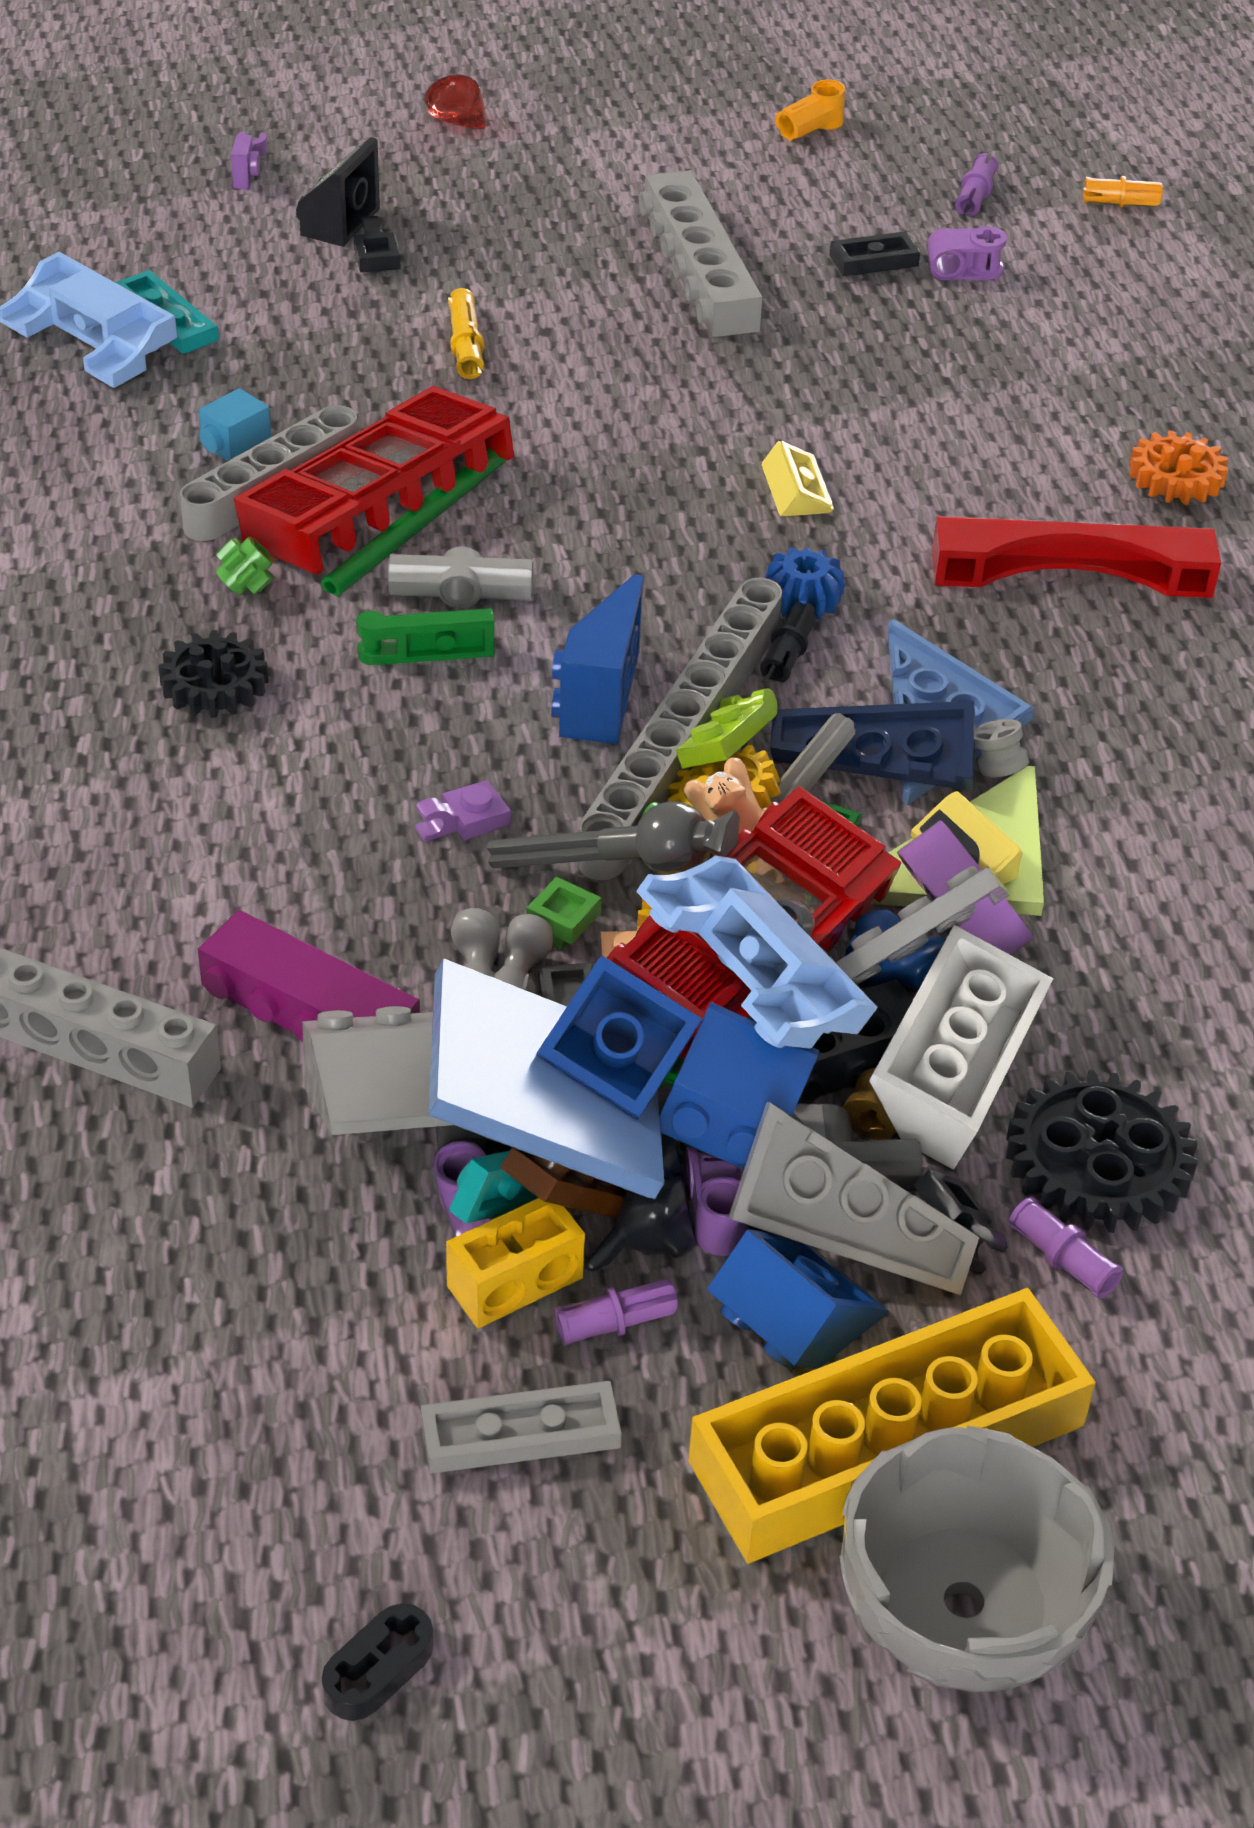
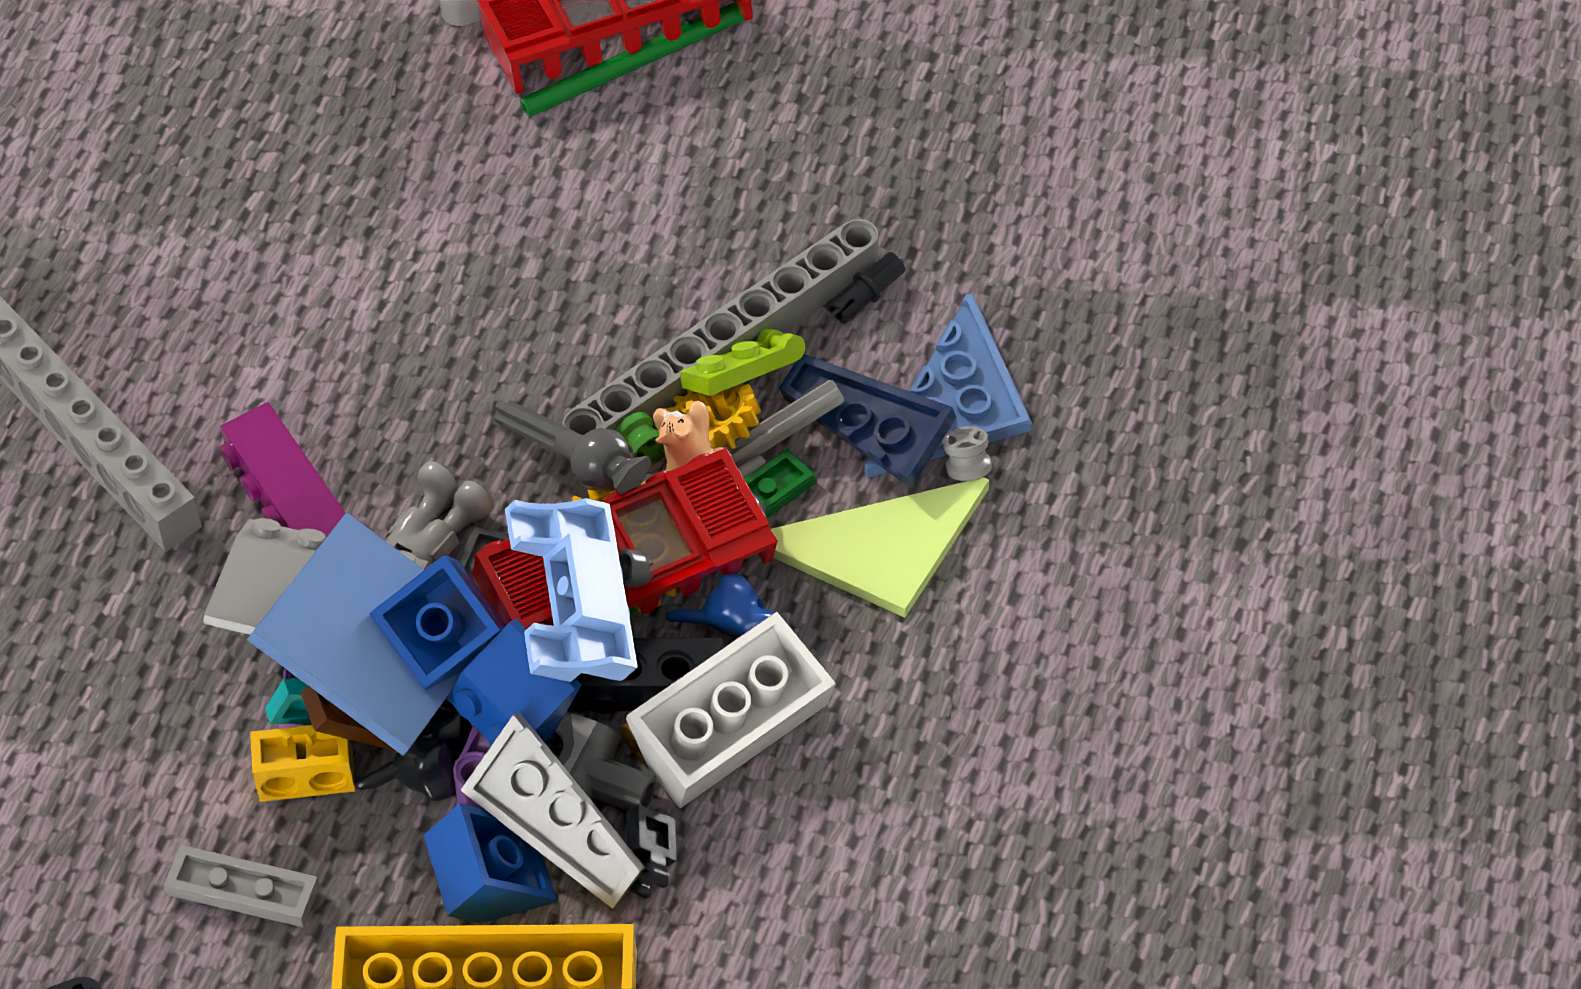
camera: 30 degrees right, 10 degrees up
(189, 673) = (356, 168): black gear -> none
(245, 565) = (459, 68): bright green gear -> none
(425, 636) = (565, 186): green plate -> none
(461, 577) = (631, 134): light grey piece -> none
(465, 810) = (507, 365): medium lavender plate -> none
(566, 910) = (514, 481): bright green tile -> none
(599, 667) = (681, 265): blue slope -> none
(615, 1311) = (357, 825): medium lavender axle -> none
(795, 481) = (990, 119): light yellow slope -> none
(807, 578) = (916, 232): blue gear -> none
(920, 918) = (740, 605): light grey wing -> none
(937, 858) = (830, 583): medium lavender beam -> none
(977, 834) = (868, 538): light yellow slope -> none
(1066, 1247) = (713, 902): medium lavender pin -> none
(1101, 1150) = (836, 823): black gear -> none
(1160, 557) = (1097, 248): red arch -> none
(1178, 467) = (1327, 223): orange gear -> none

